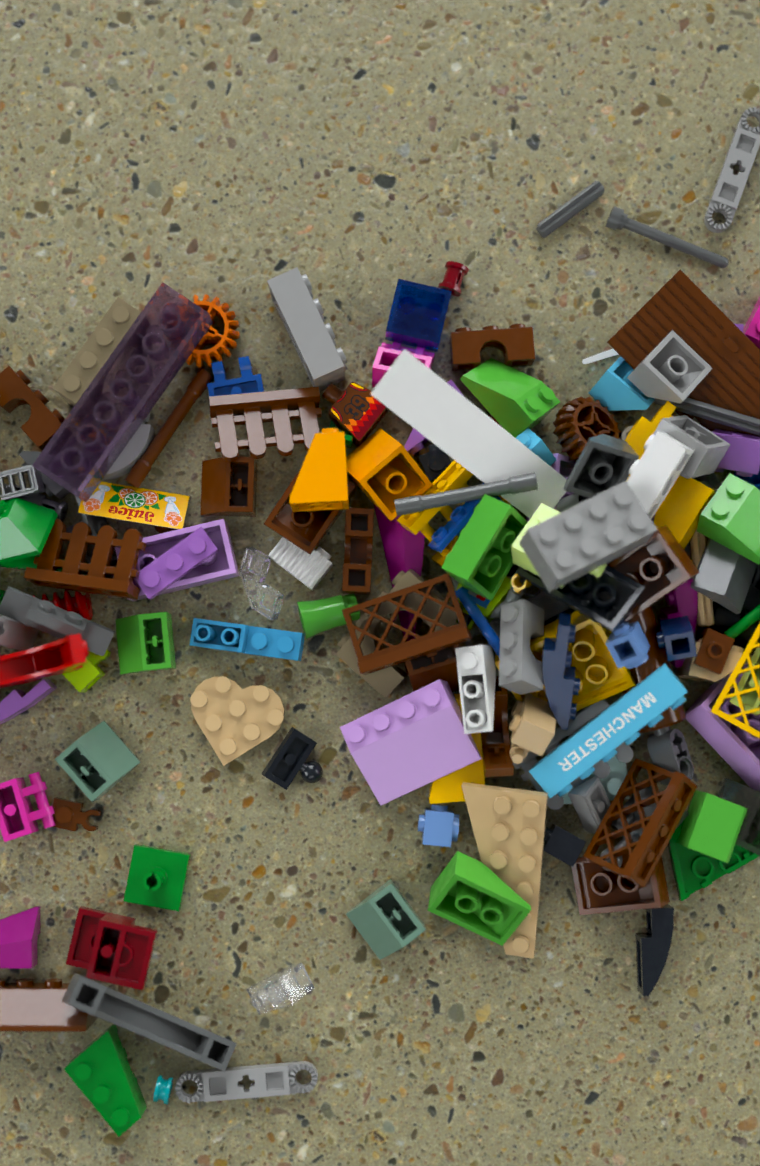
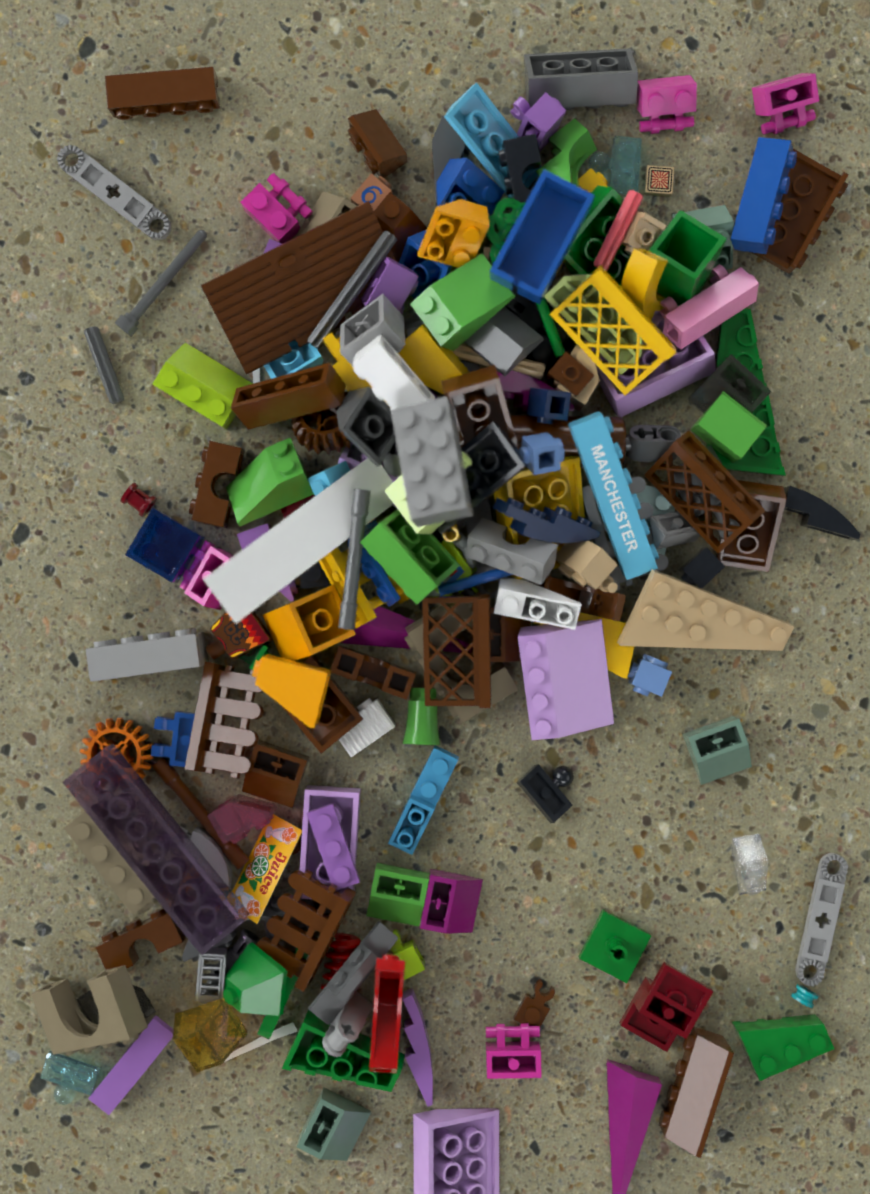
camera: 65 degrees left, 5 degrees up
(97, 761) = (493, 970): sand green slope -> none
(148, 1022) = (742, 992): dark grey arch -> none
(153, 698) = (450, 902): none -> magenta slope
(177, 461) = (240, 814): none -> clear pink slope
(234, 716) = (491, 831): tan plate -> none
(253, 574) = (386, 774): clear tile -> none
(477, 899) = (726, 663): bright green slope -> none
(581, 306) = (200, 384): none -> lime slope
(601, 386) = (288, 396): none -> reddish brown brick
(670, 370) = (294, 325): light grey slope -> none

